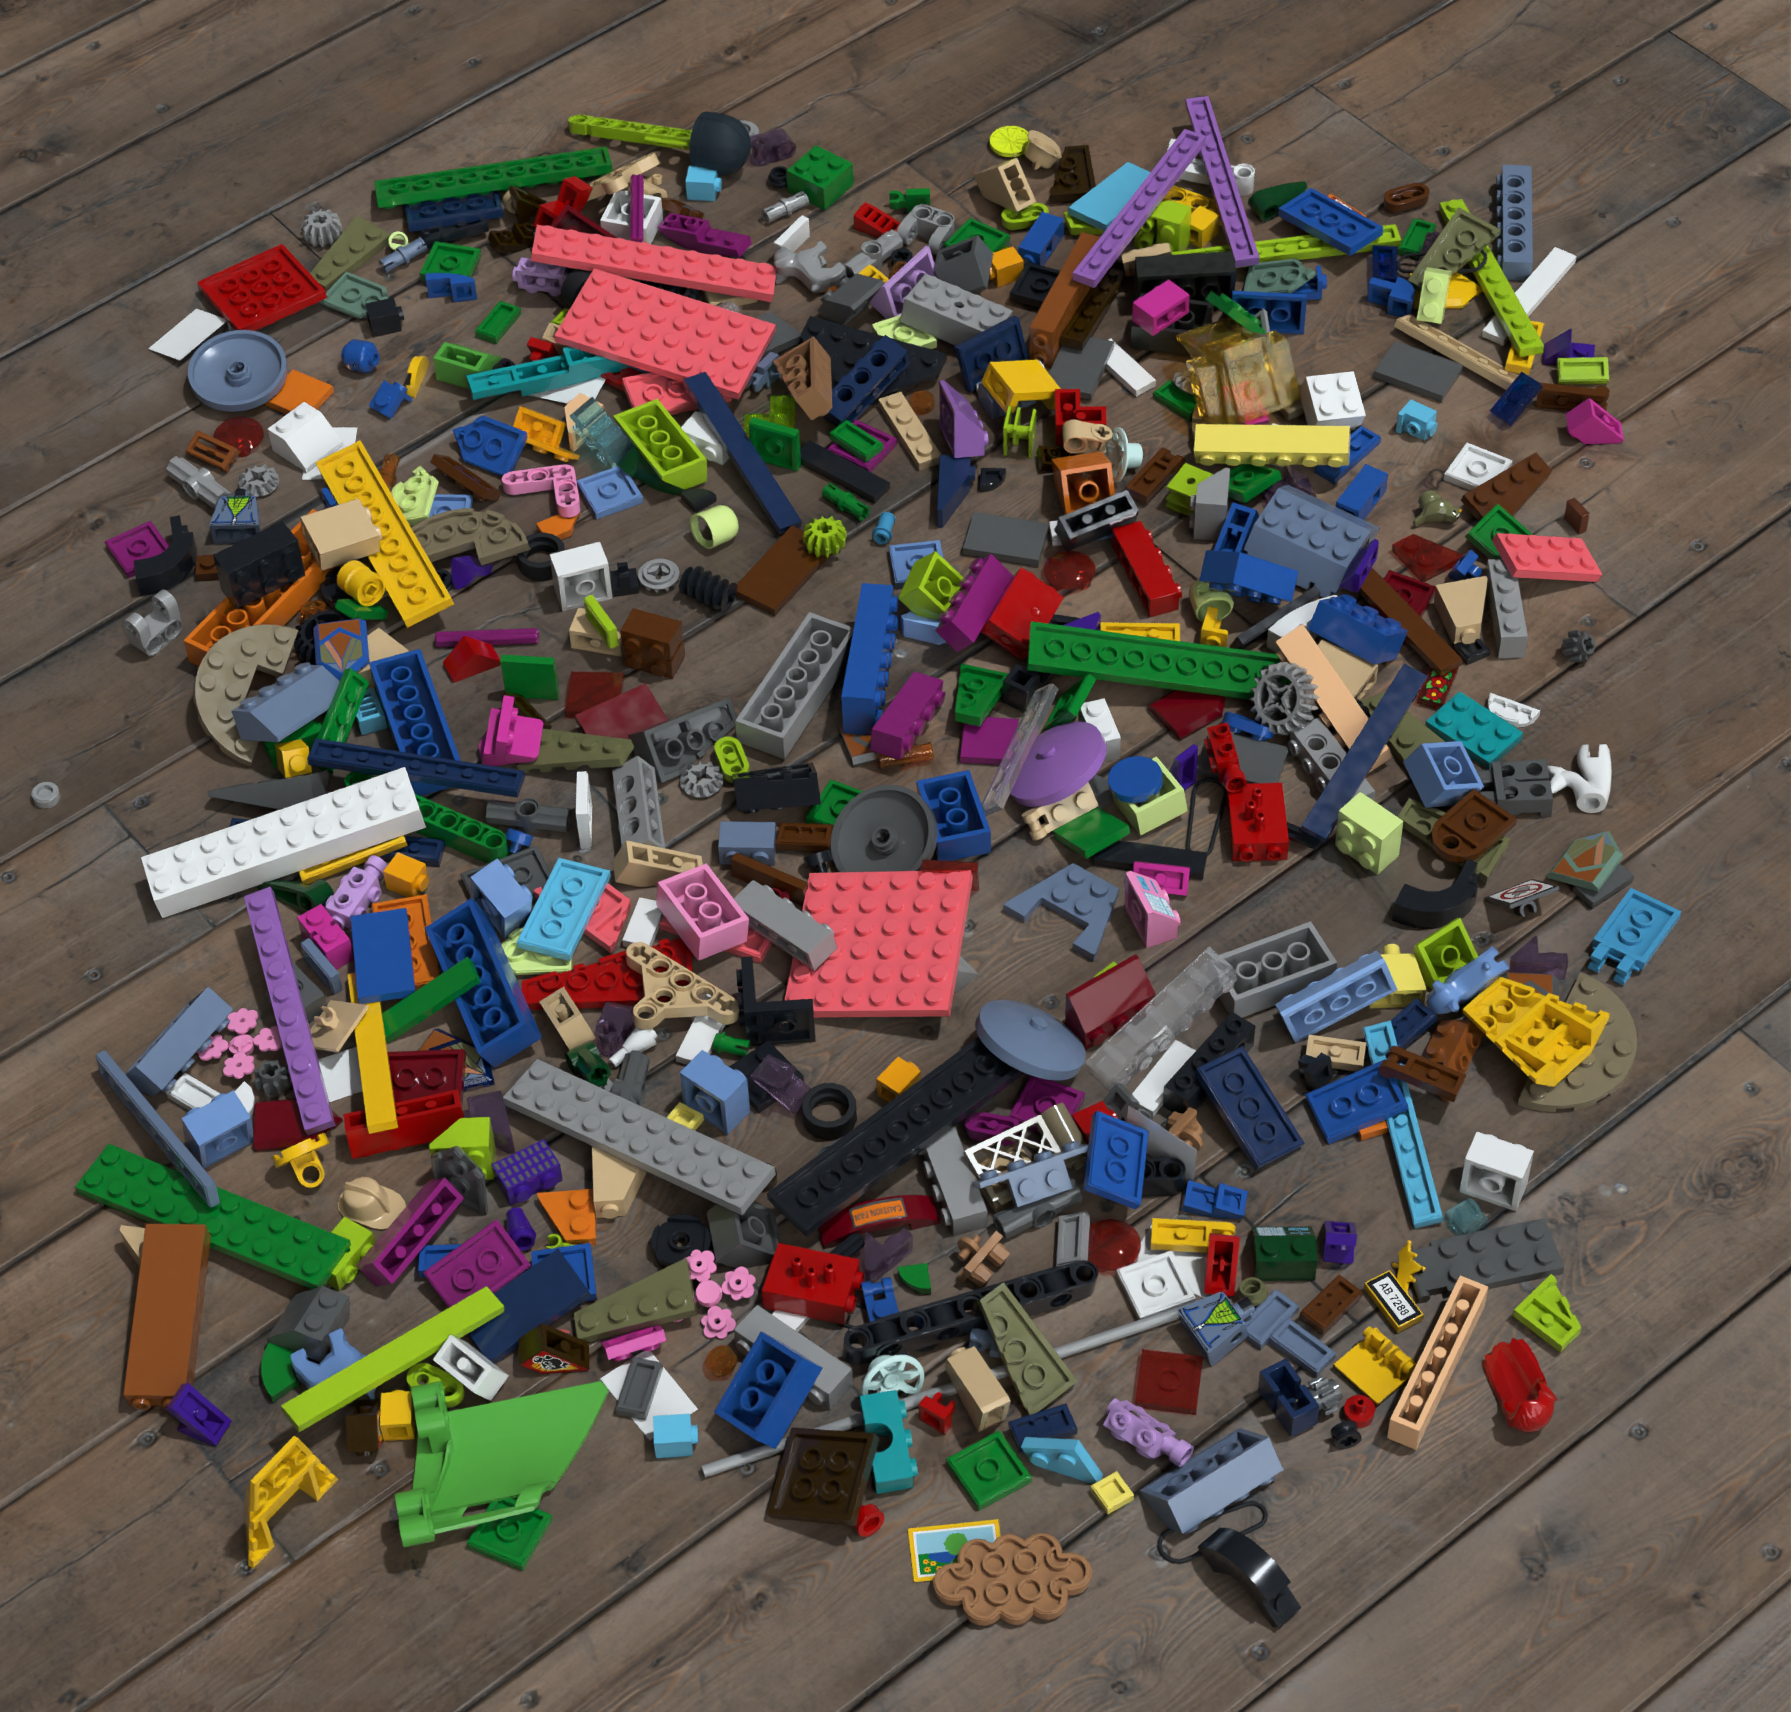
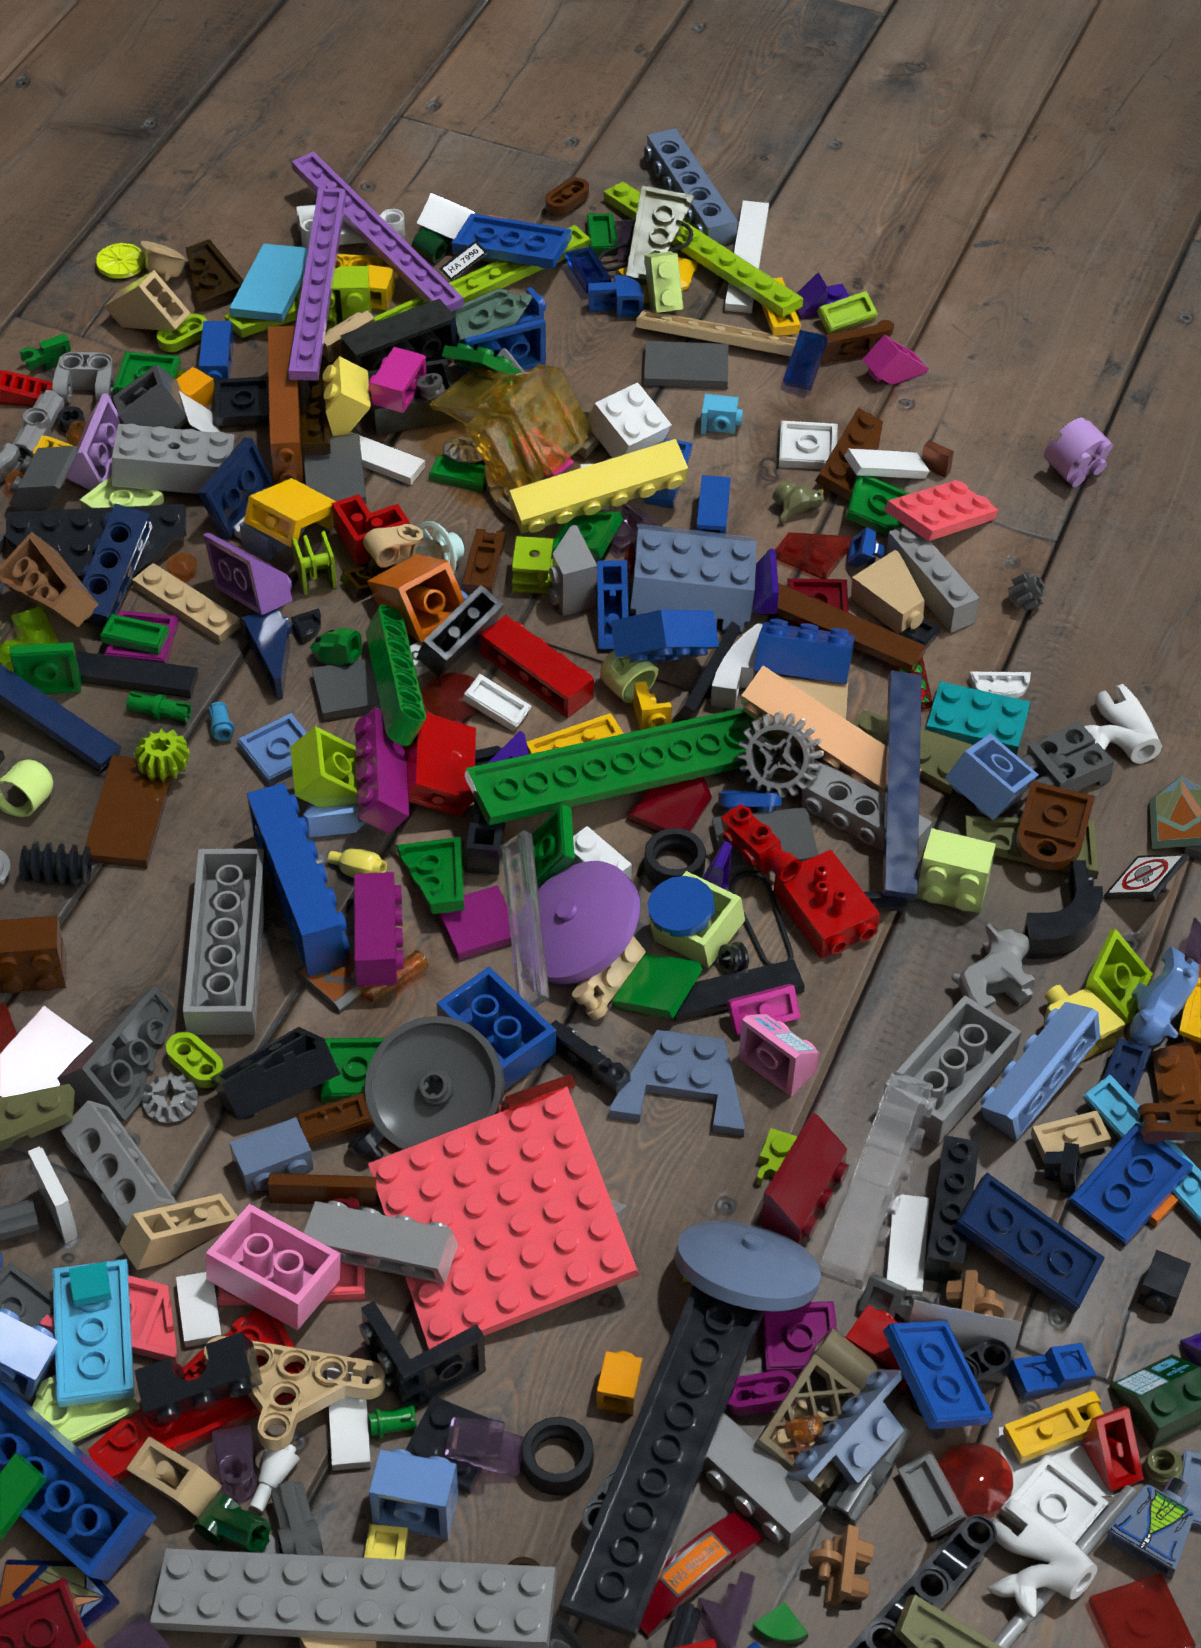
camera: 30 degrees left, 0 degrees up
(576, 876) = (90, 1284): none -> teal tile
(632, 964) = (229, 1372): none -> black arch
(926, 665) = (357, 862): none -> light yellow plant
(997, 287) = (198, 415): none -> white sticker
(997, 1155) = (804, 1428): none -> clear orange tile
(1001, 502) = (337, 647): none -> green rock
(1009, 863) = (589, 1059): none -> black hinge
(1023, 535) = (395, 675): none -> green beam
(1098, 586) = (496, 703): none -> white tile
(1114, 306) = (345, 395): none -> light yellow slope
(1133, 1322) = (1068, 1568): none -> white piece
(1161, 834) = (733, 957): none -> black bush
(1162, 732) = (673, 840): none -> black tyre
(1184, 321) = (431, 386): none -> dark grey bush
(1280, 226) = (463, 260): none -> sticker
(1287, 183) = (443, 216): none -> white sticker
(1335, 1176) = (1163, 1283): none -> black brick
(1356, 918) = (999, 970): none -> light grey animal
(1528, 505) = (886, 463): none -> white tile
(1698, 549) = (1078, 451): none -> lavender brick

